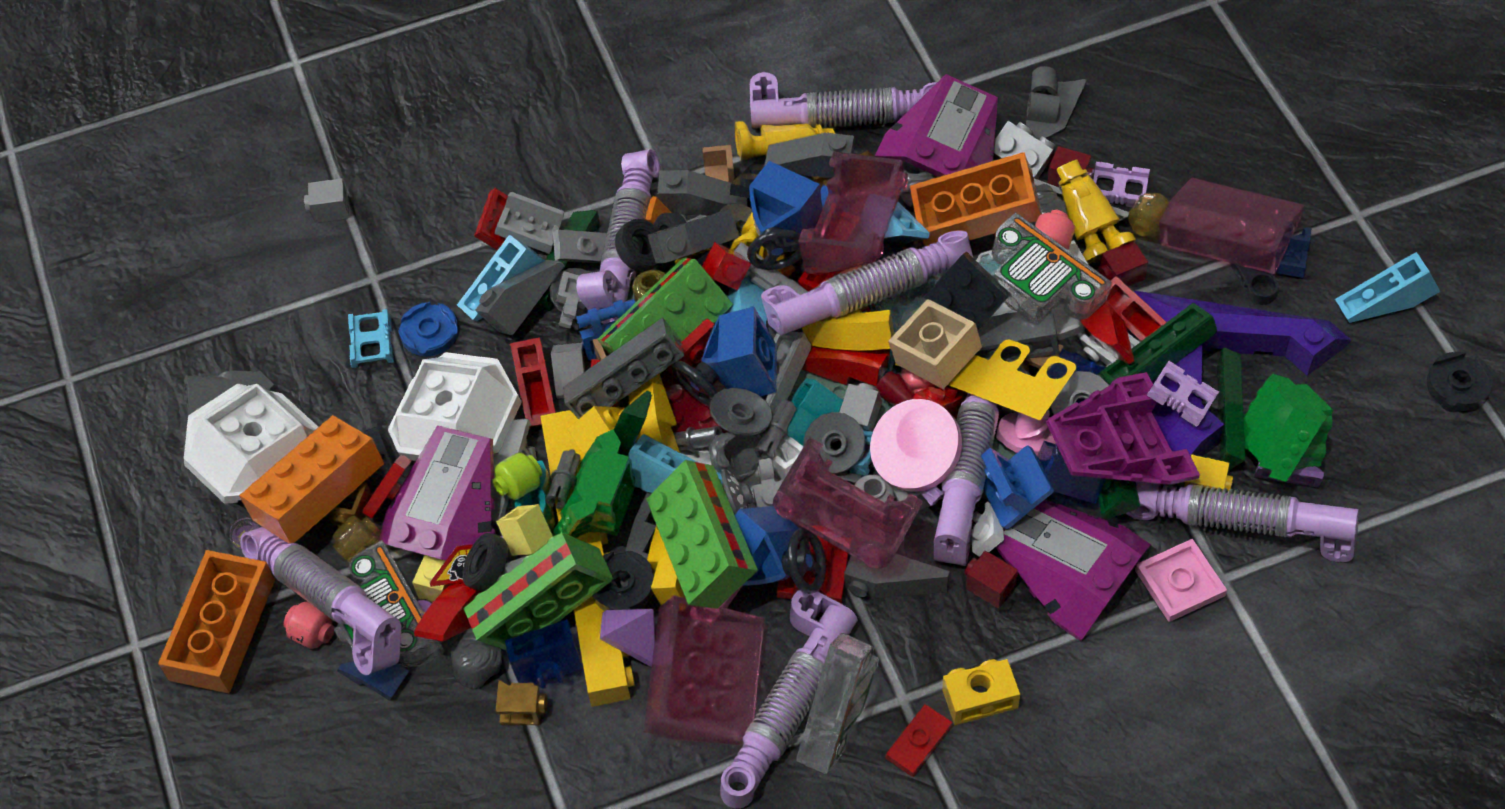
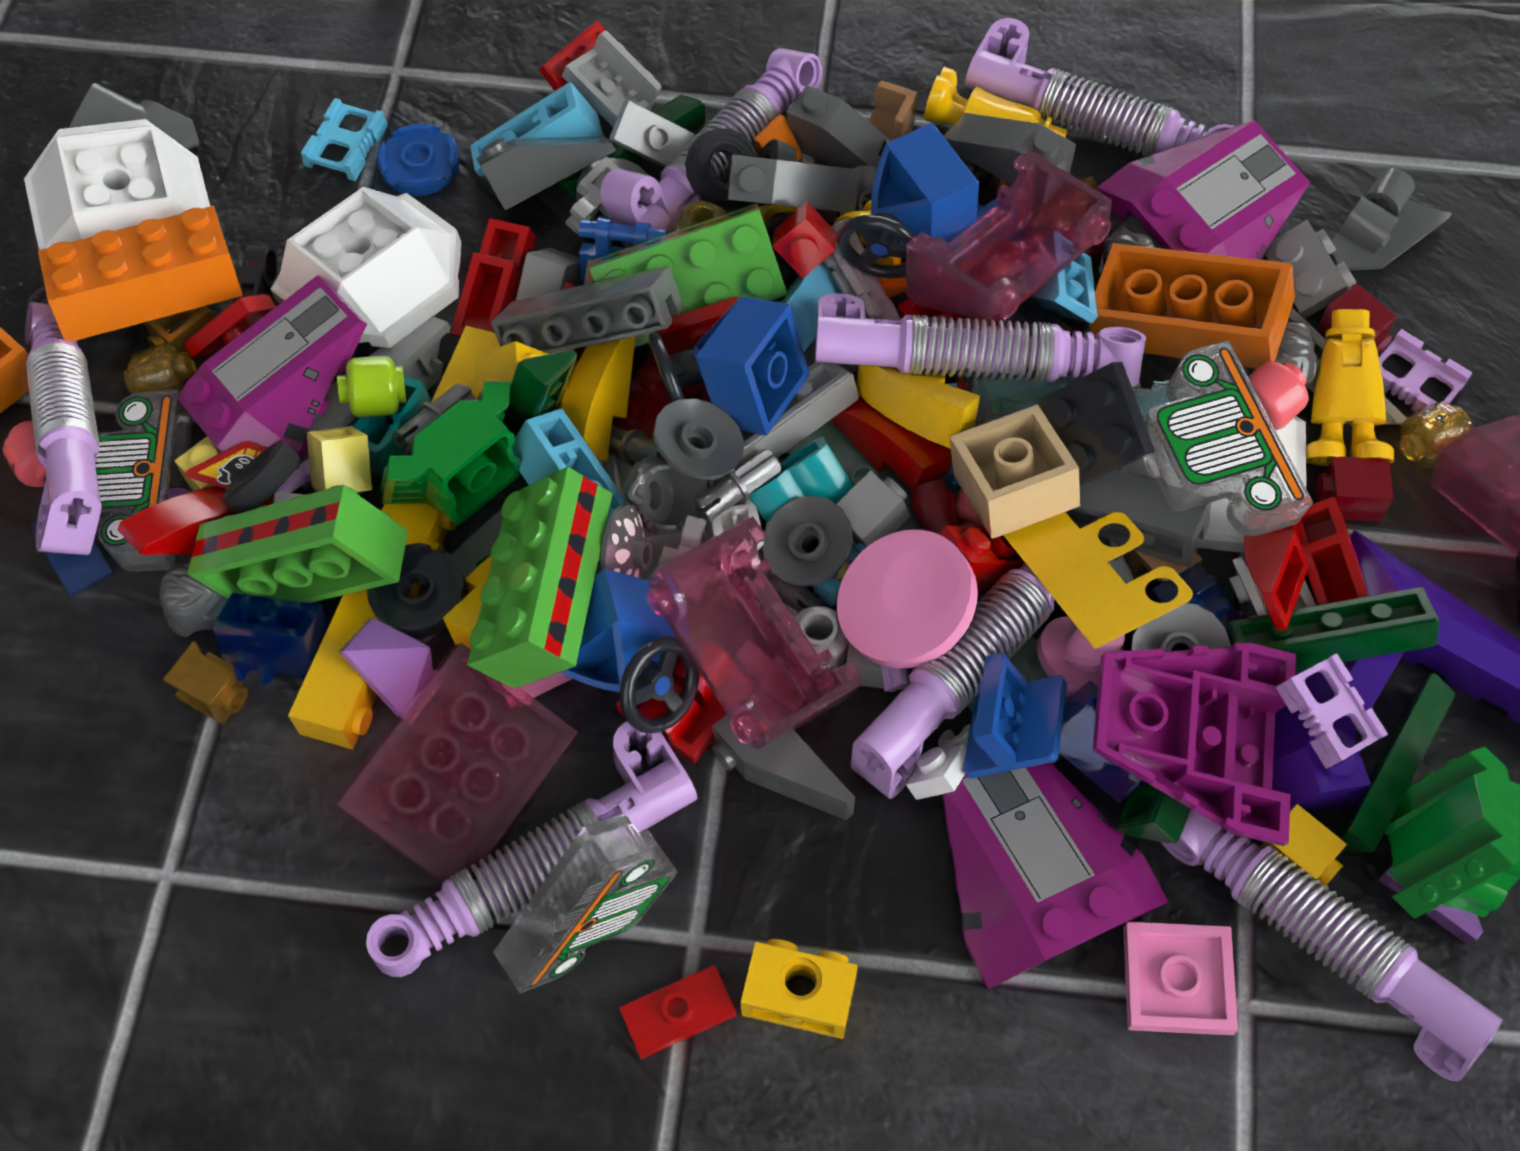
camera: 25 degrees right, 5 degrees up
(990, 578) = (910, 835): dark red brick -> none

